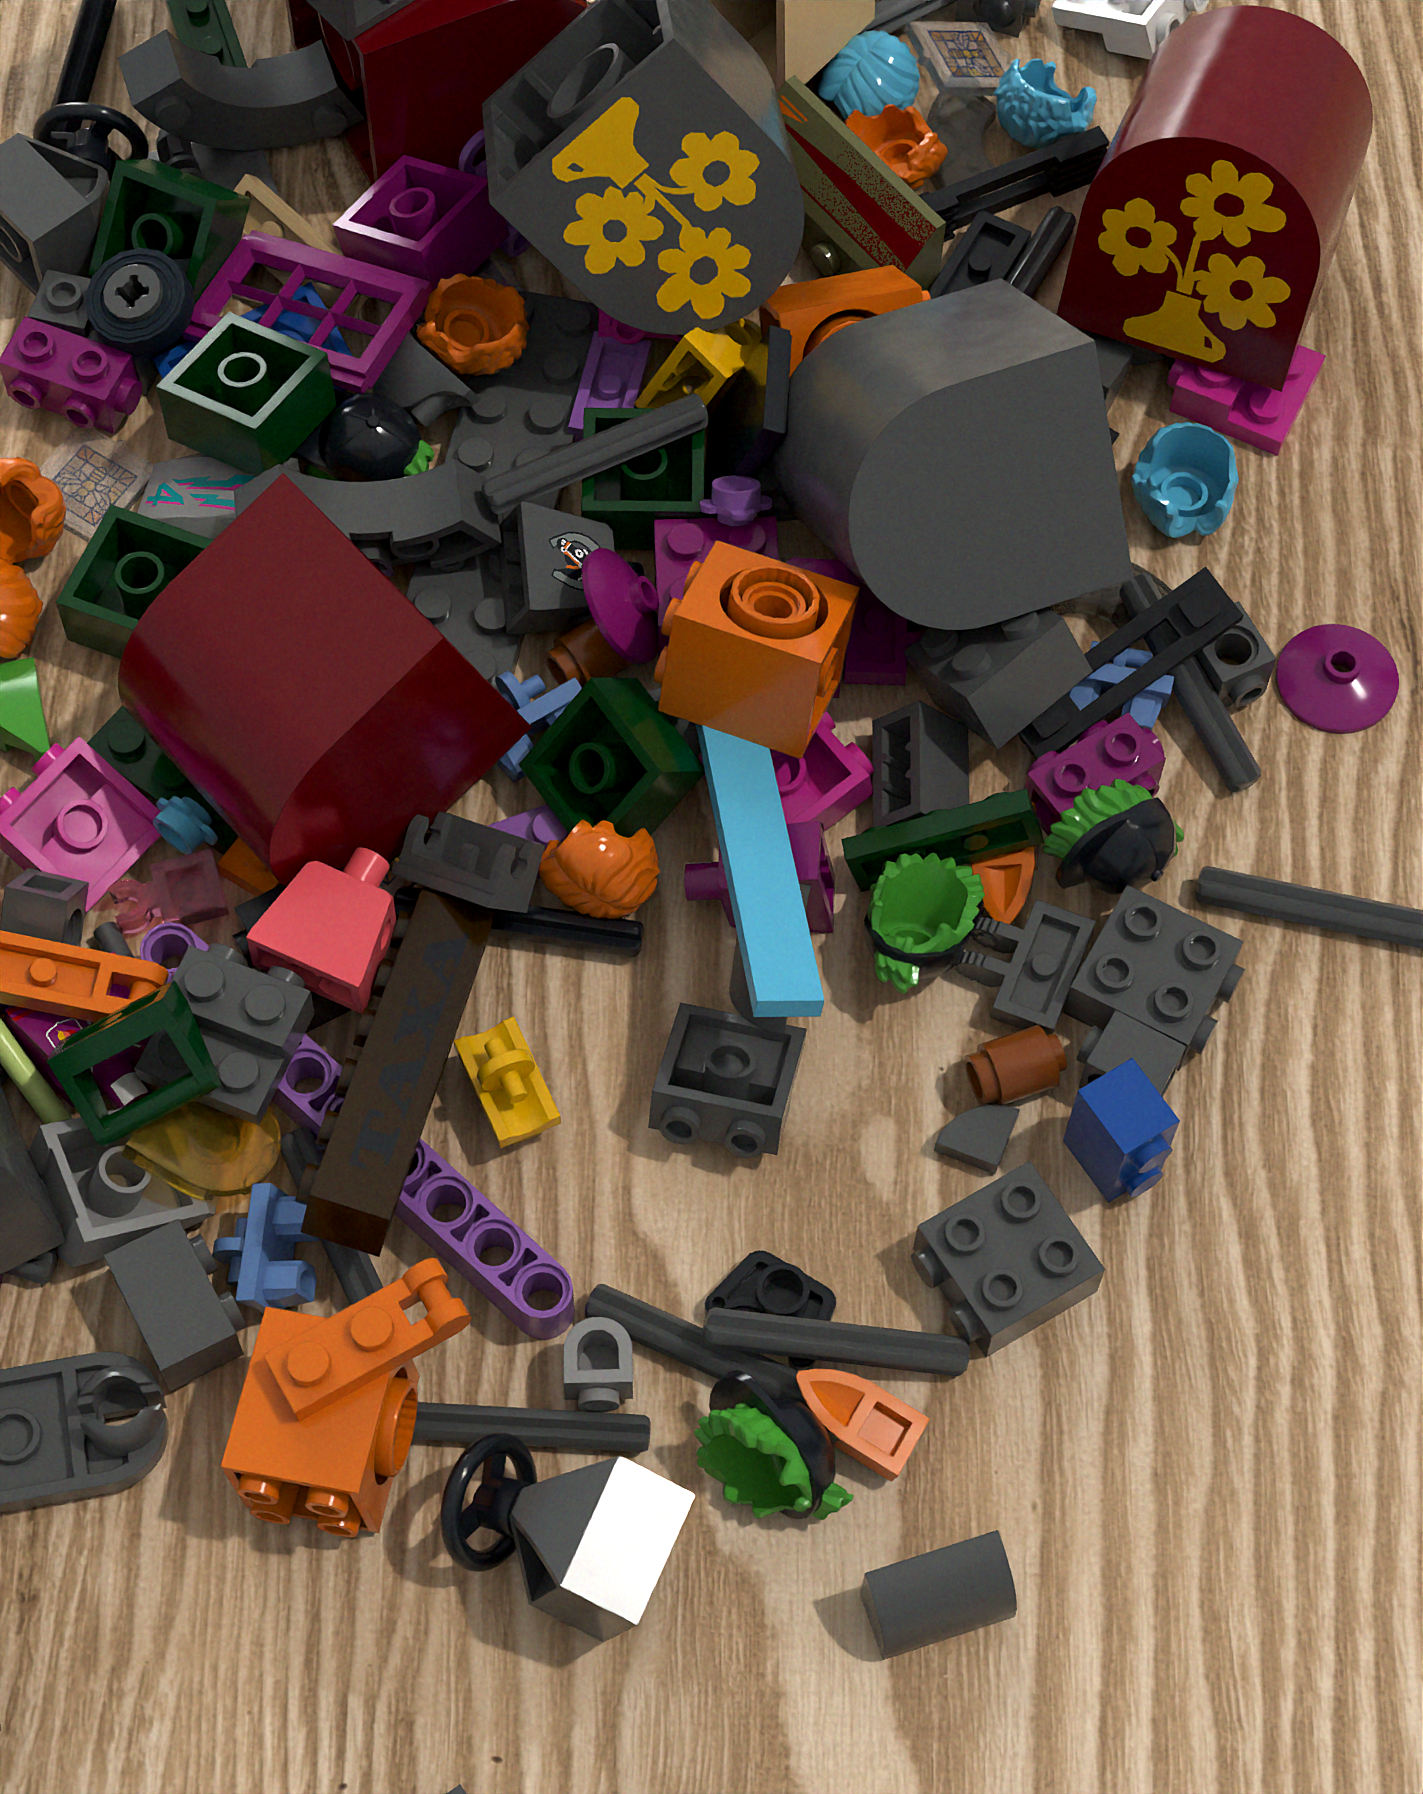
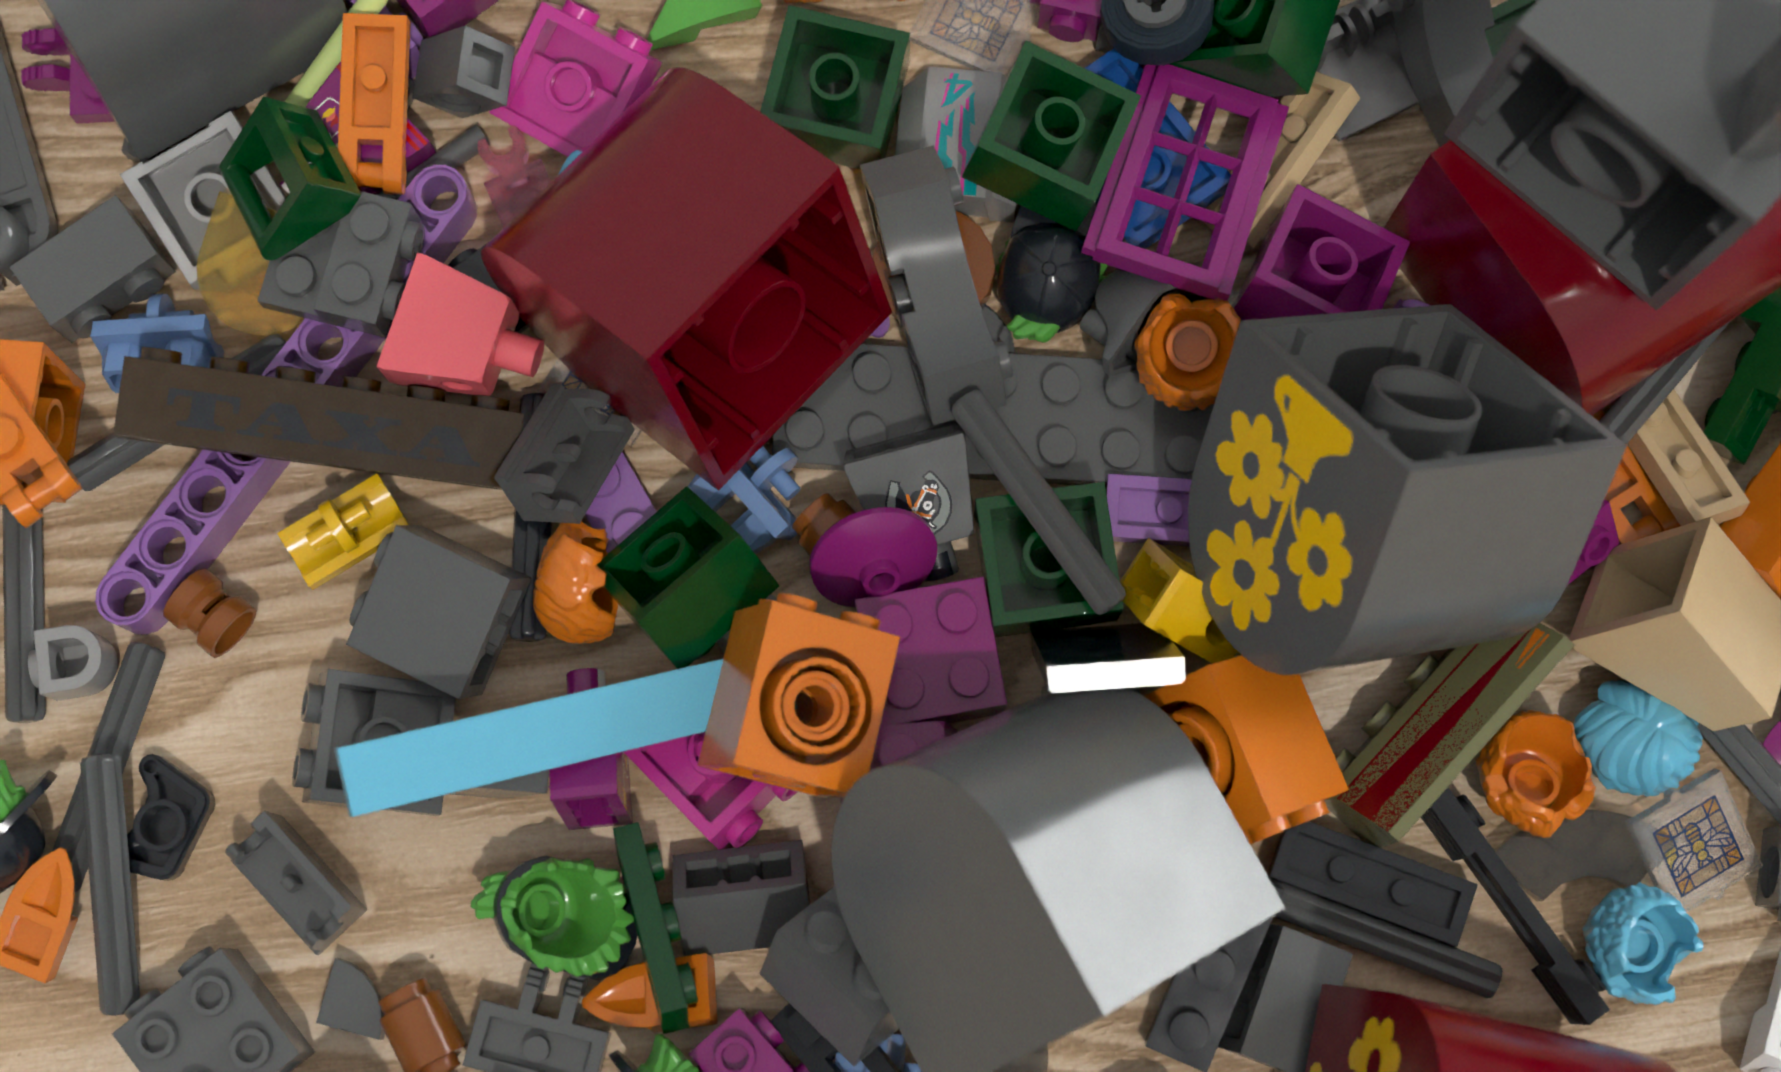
camera: 85 degrees right, 15 degrees up
(569, 1224) = (209, 612): none -> dark orange wheel
(605, 995) = (437, 610): none -> dark grey brick
(735, 500) = (1006, 657): medium lavender plate -> none
(855, 1171) = (296, 881): none -> dark grey hinge

